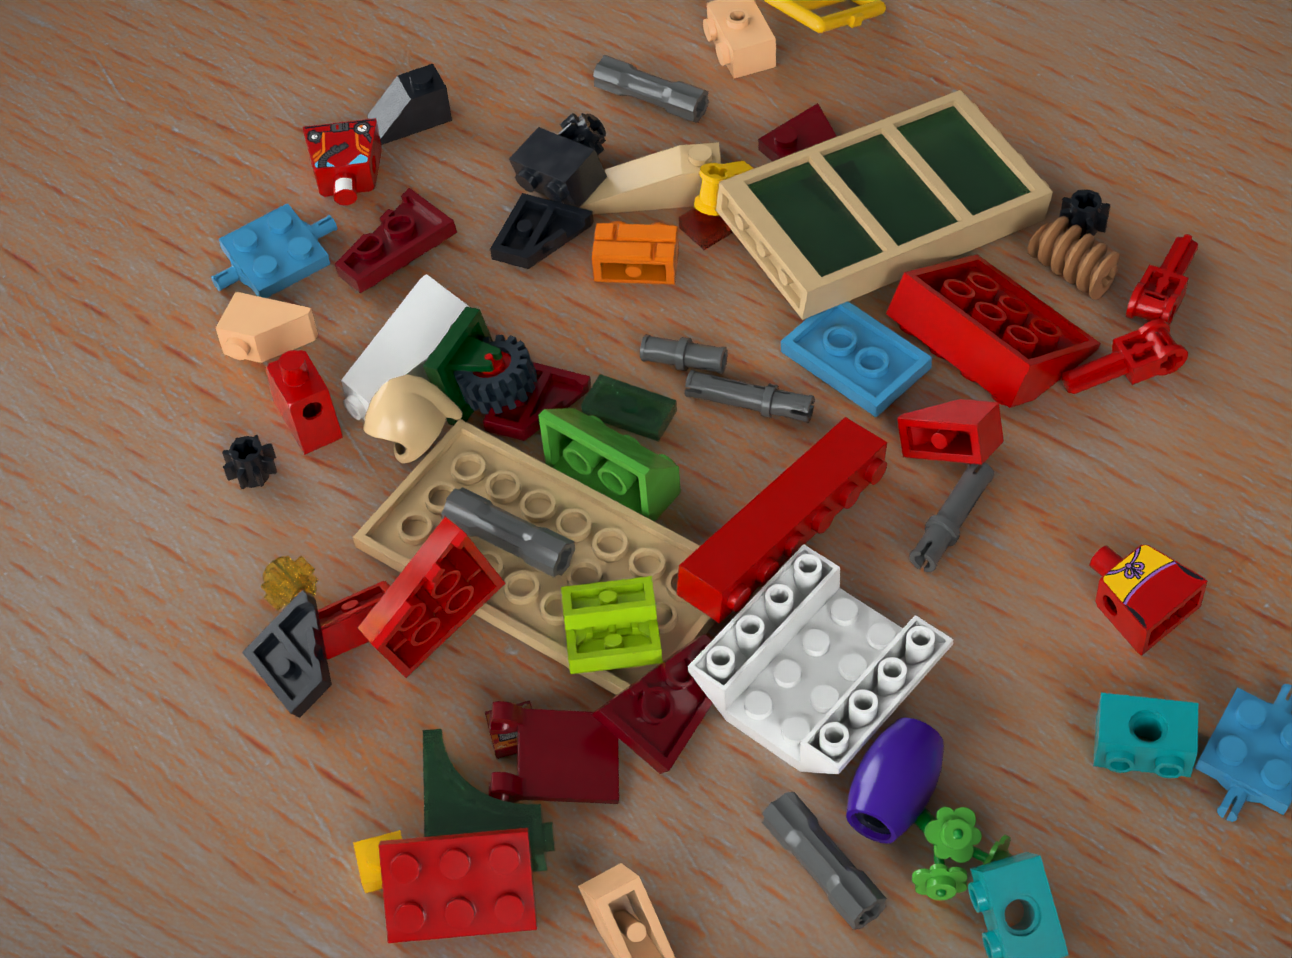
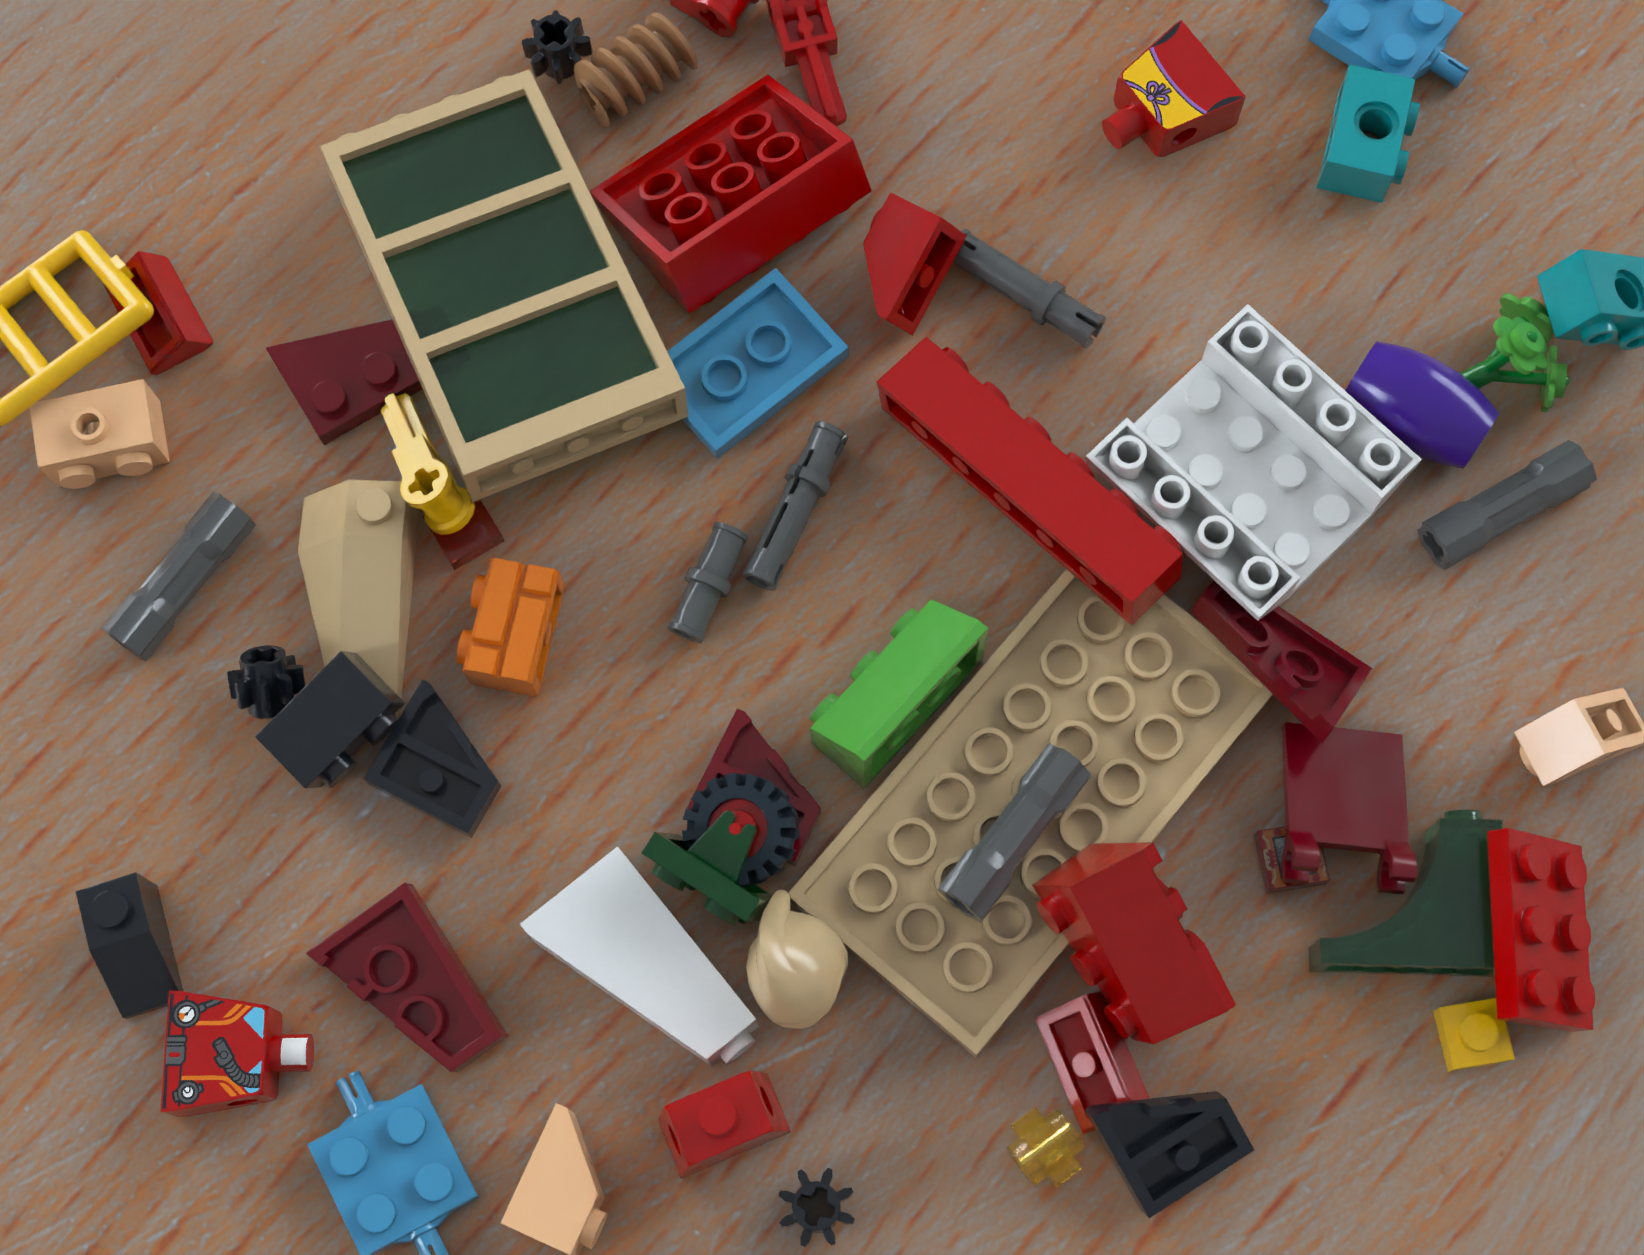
camera: 85 degrees left, 20 degrees up
(611, 625) = (1170, 711): lime slope -> none
(629, 407) = (792, 663): clear green plate -> none
(837, 53) = (175, 328): none -> red slope

